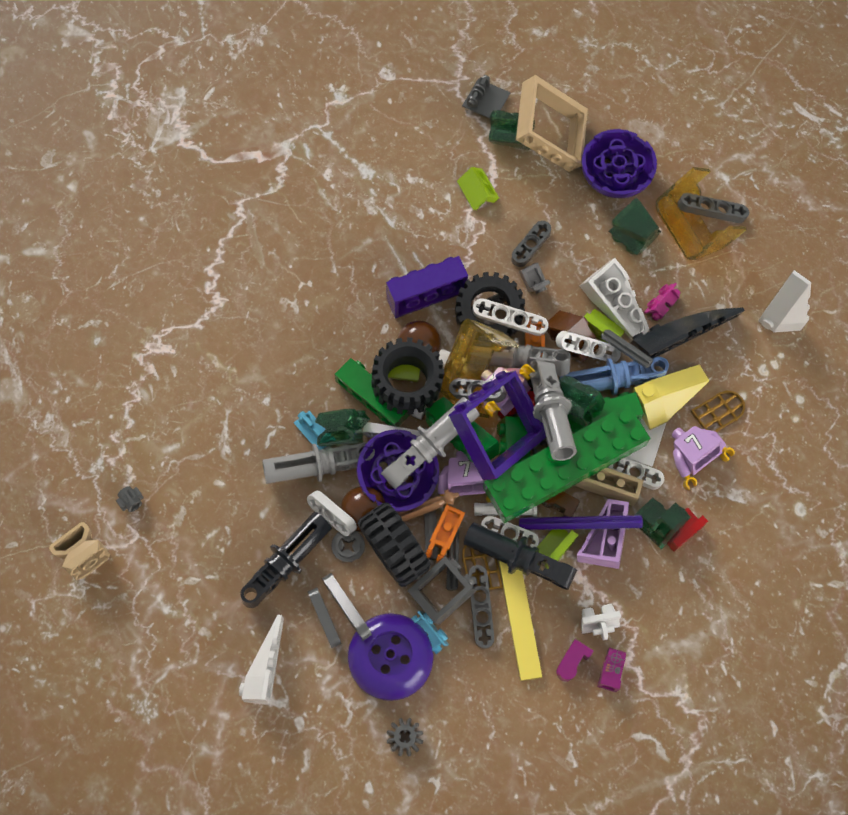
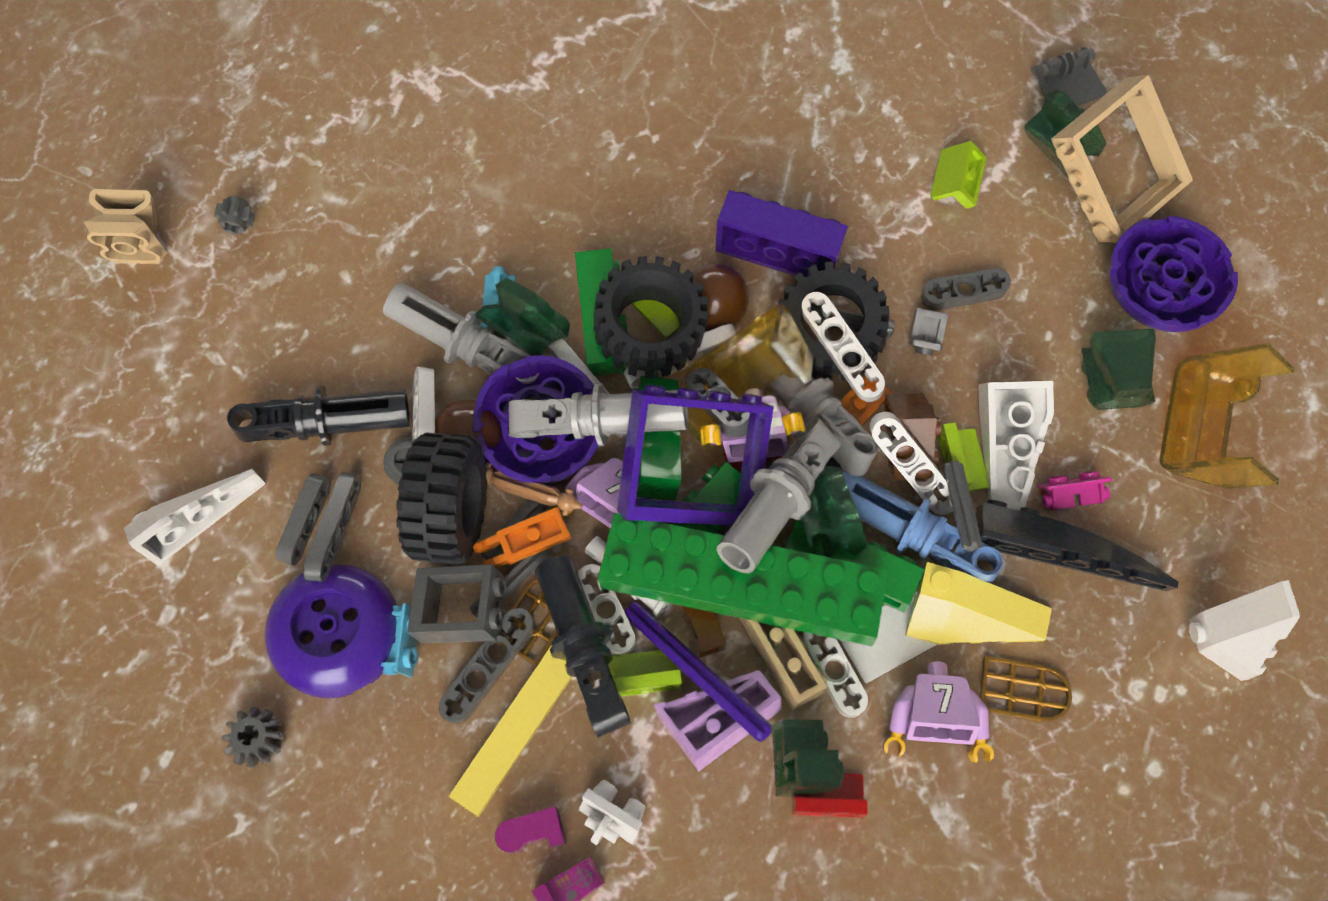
camera: 45 degrees right, 0 degrees up
(692, 204) = (1254, 429): dark grey beam -> none

